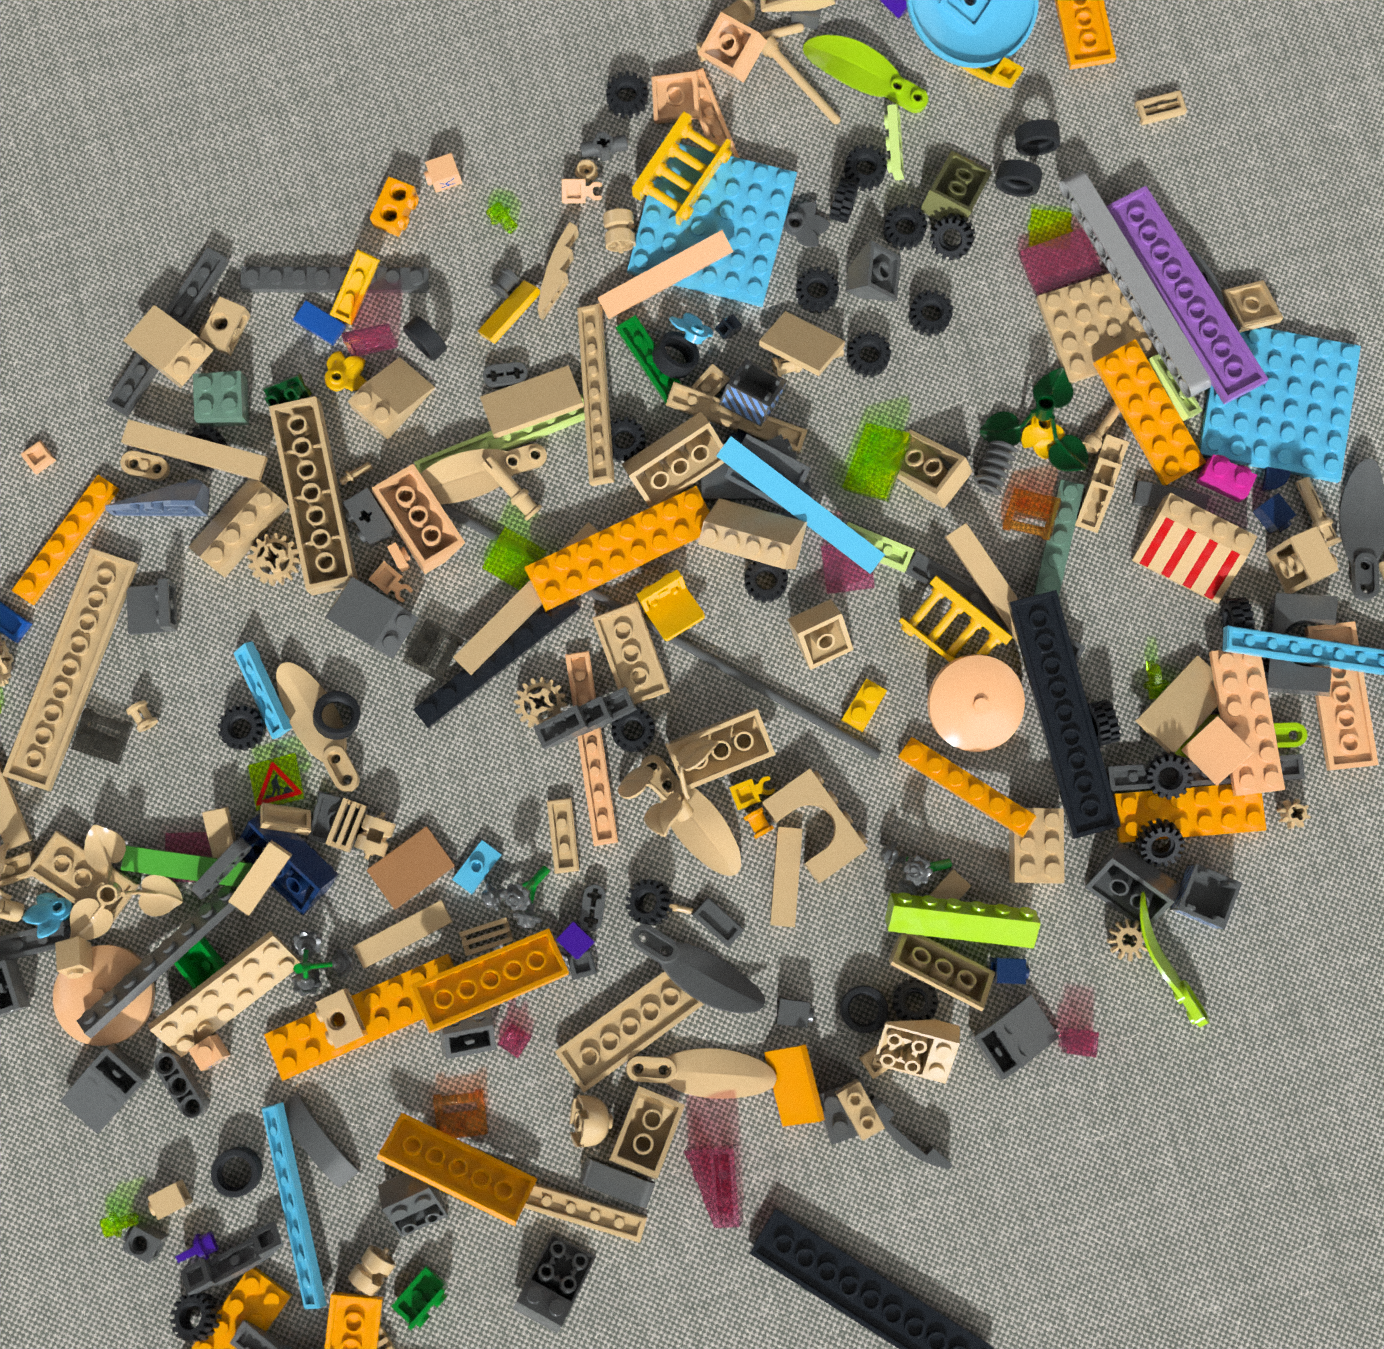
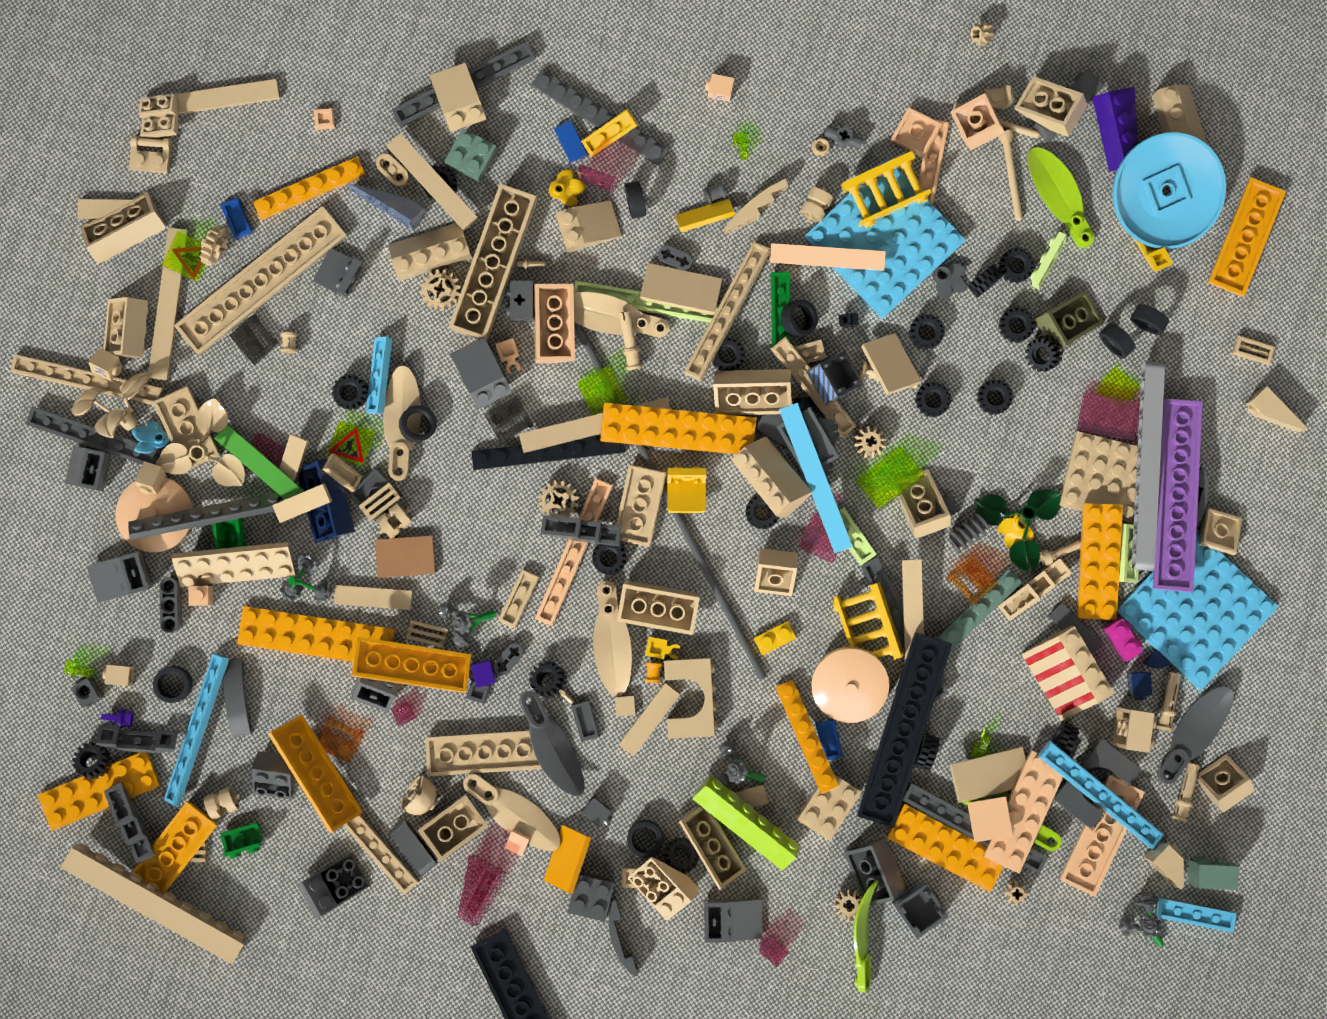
camera: 30 degrees right, 5 degrees up
(221, 868) = (280, 480): dark grey beam -> none
(224, 339) = (501, 114): tan brick -> none
(286, 390) = (518, 178): dark green hips -> none
(353, 1026) = (306, 619): tan brick -> none
(388, 205) = (668, 87): light orange brick -> none
(400, 556) = (525, 341): light nougat plate -> none
(477, 867) = (449, 583): medium azure plate -> none
(575, 190) = (804, 157): light nougat plate -> none
(627, 82) = (883, 98): black tyre -> none
(675, 806) = (590, 630): tan plant -> none
(693, 328) = (823, 305): medium azure plate -> none
(728, 1102) = (517, 842): none -> light nougat tile
(750, 878) = (625, 706): none -> tan tile
(832, 446) = (866, 436): none -> tan gear
(859, 1110) = (598, 902): tan brick -> none
(874, 273) = (973, 345): dark grey slope -> none
(991, 774) = (829, 739): none -> blue tile
(1009, 970) = (757, 874): dark blue brick -> none
(1162, 854) = (912, 846): black tyre -> none
(1175, 788) = (955, 807): black tyre -> none
(1217, 152) = (1270, 408): none -> tan slope

